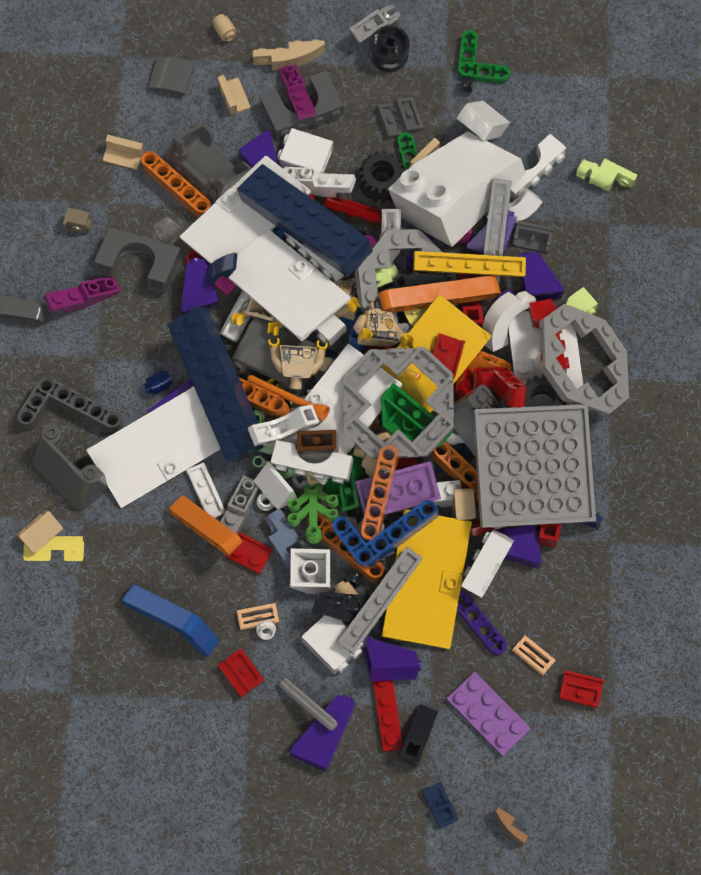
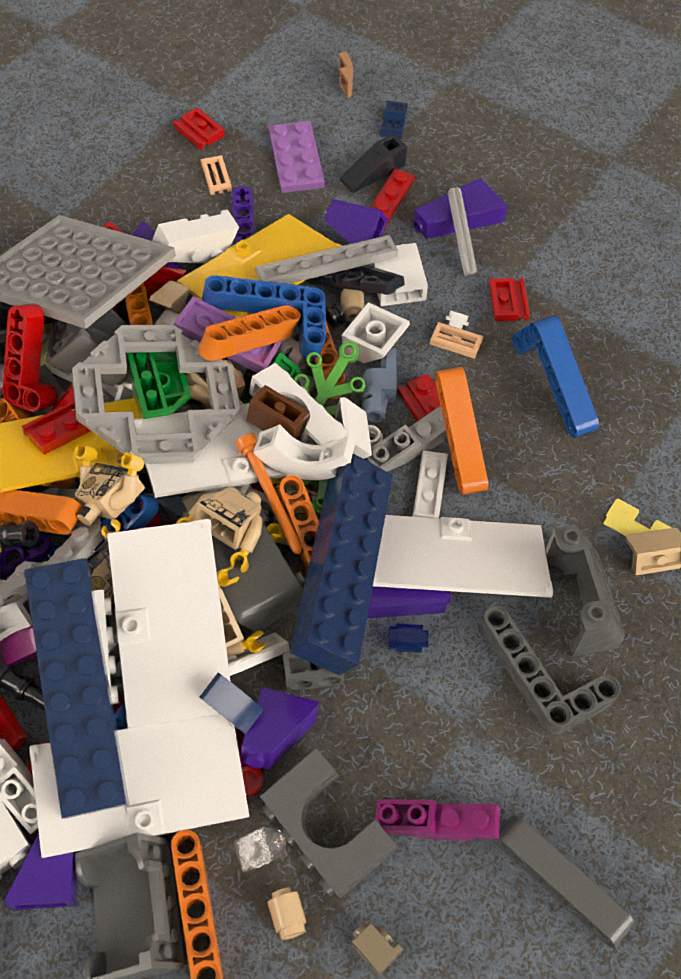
camera: 145 degrees left, 10 degrees down
(130, 210) = (287, 913): none -> tan brick

